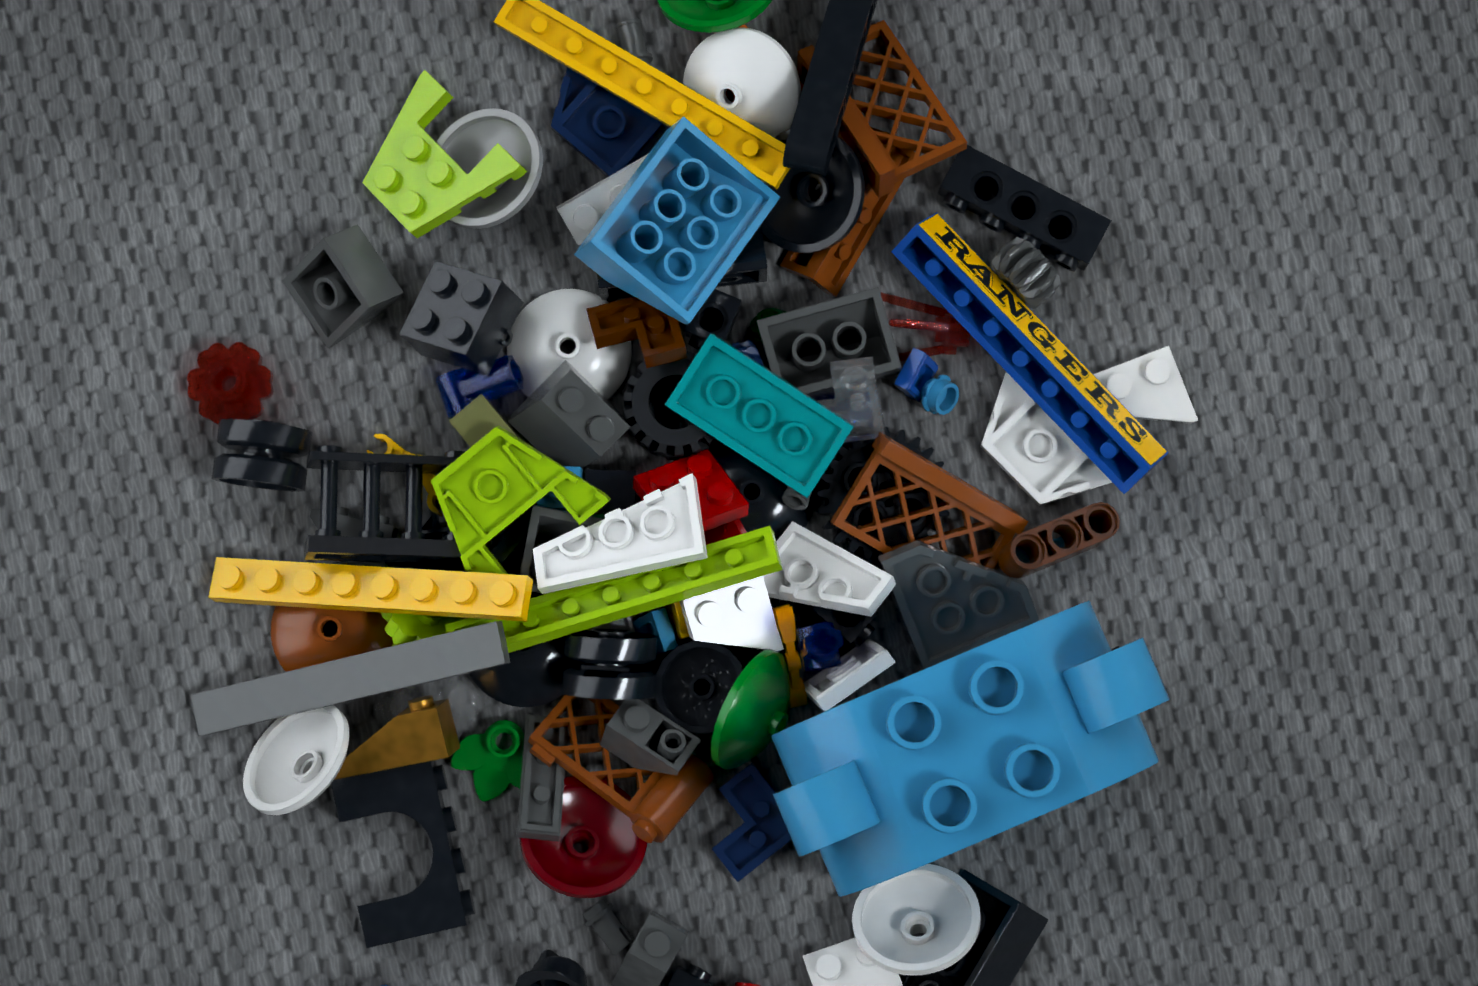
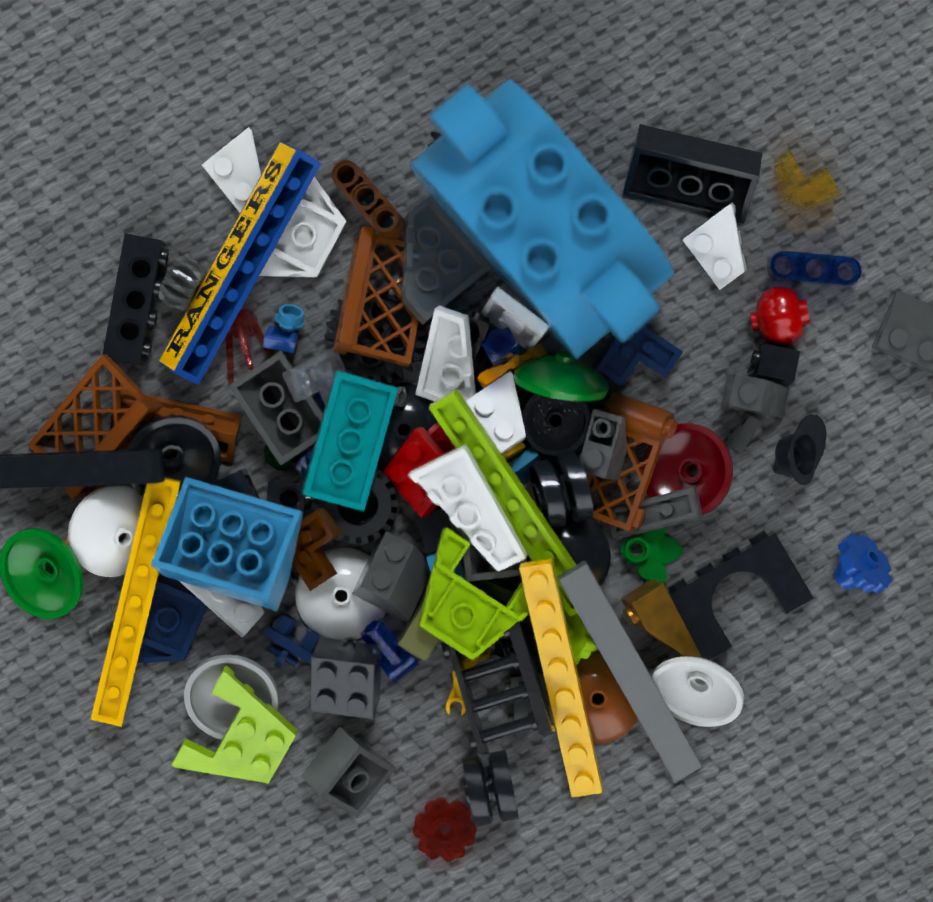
camera: 105 degrees left, 5 degrees up
(543, 256) = (280, 632): none -> dark blue hips
(919, 901) = (655, 205): white dish -> none

